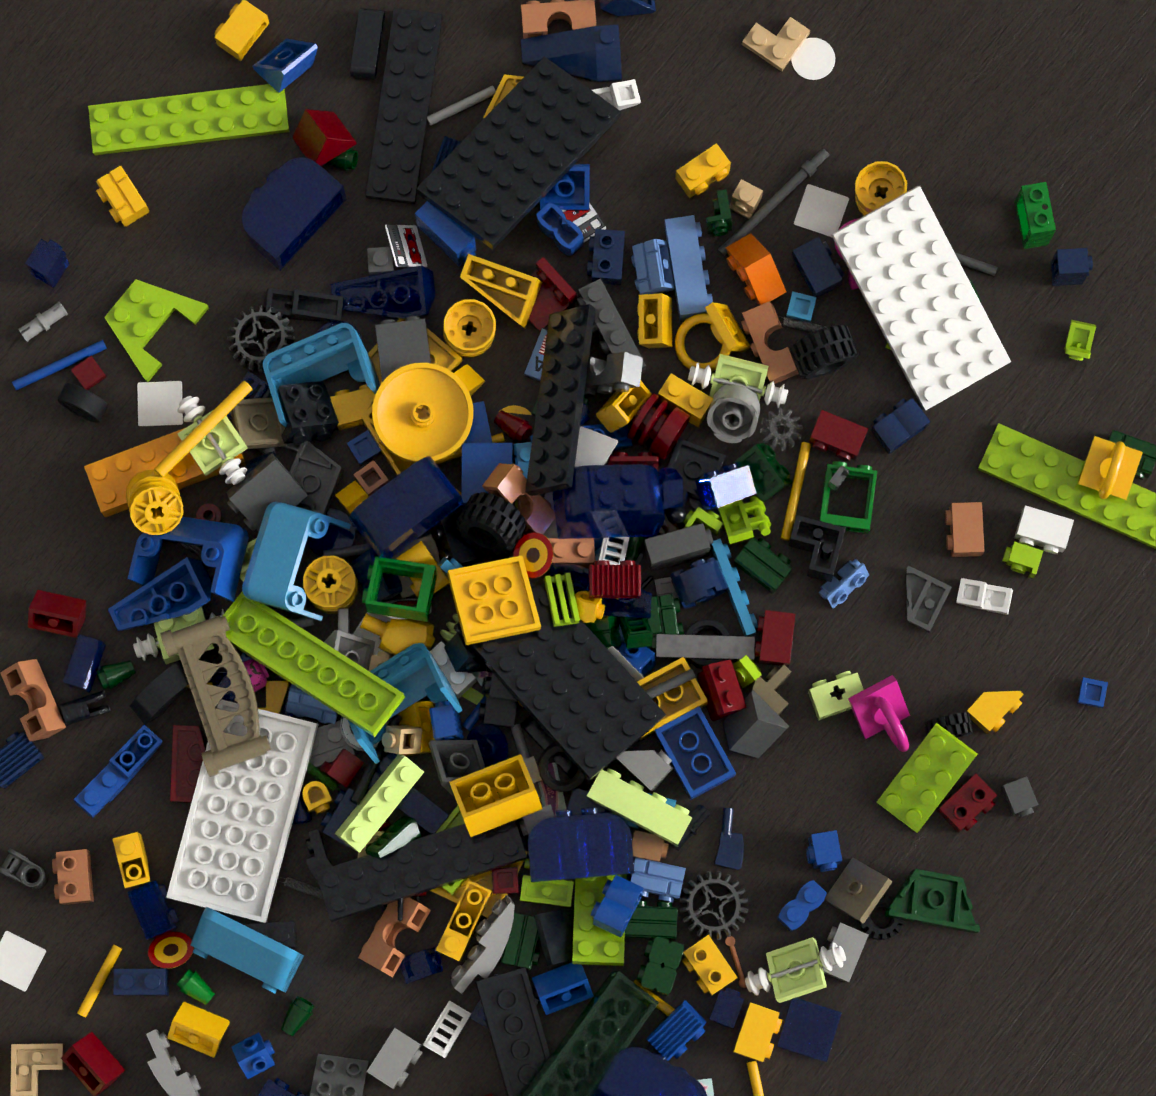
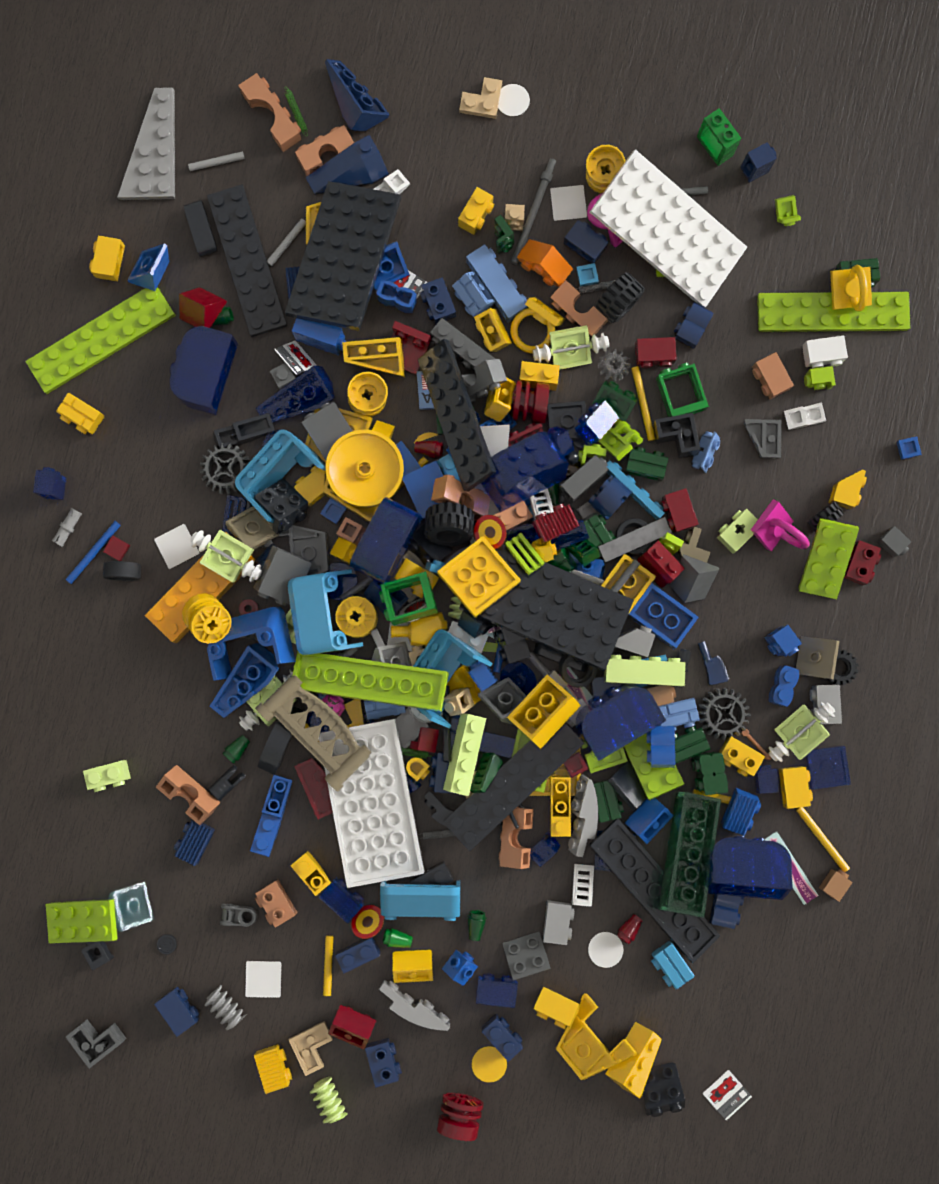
camera: 30 degrees left, 5 degrees up
(57, 613) = (175, 727): dark red brick -> none
(84, 663) = (211, 752): clear blue brick -> none
(142, 313) = (133, 492): lime wing -> none
(203, 429) = (216, 551): yellow piece -> none
(733, 413) = (578, 369): light grey brick -> none
(838, 478) = (671, 381): dark grey tile -> none
(934, 901) = (871, 640): dark green wing -> none

